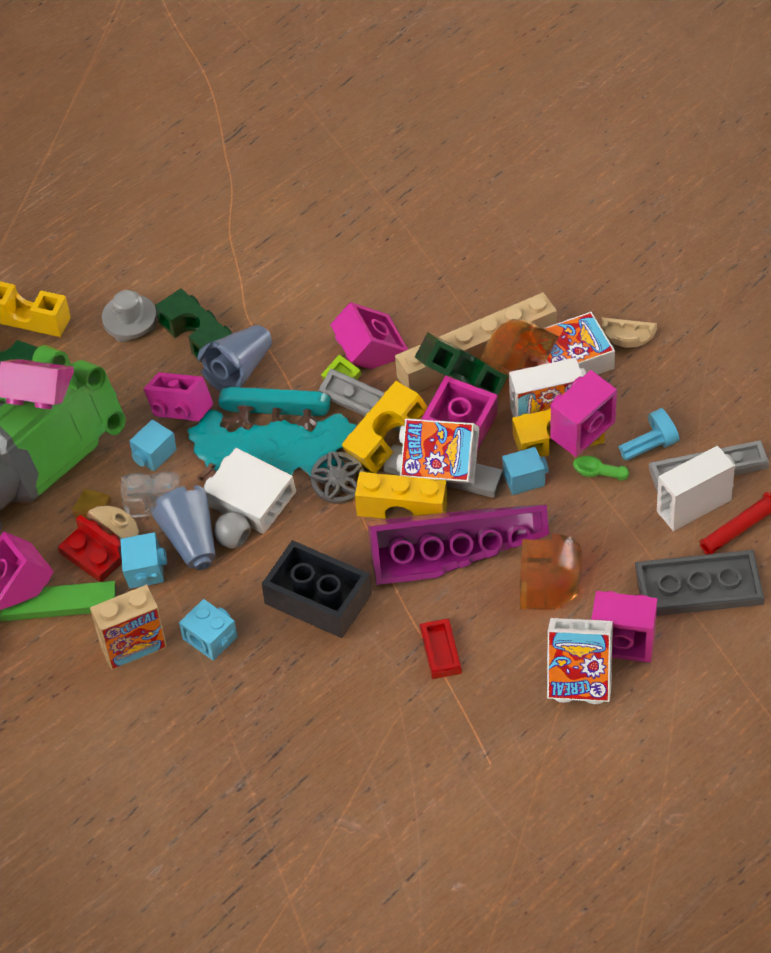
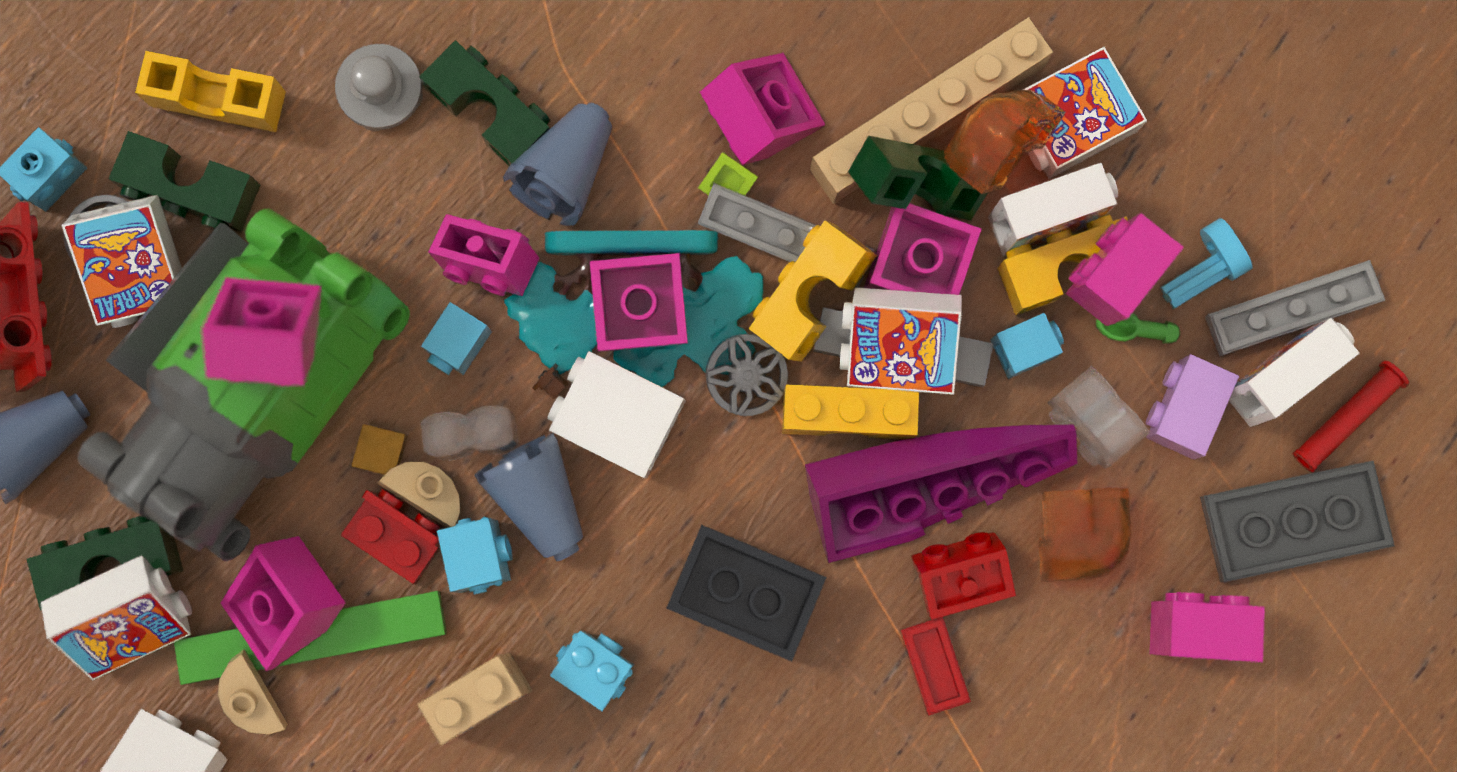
camera: 15 degrees left, 30 degrees up
(232, 530) = (600, 487): light grey piece -> none
(272, 423) = (638, 302): none -> dark pink brick
(466, 595) = (964, 574): none -> red bracket
(568, 511) = (1100, 417): none -> clear brick
(579, 660) = (1153, 703): brick -> none
(628, 332) = (1155, 69): tan plate -> none
(630, 510) = (1190, 406): none -> lavender brick

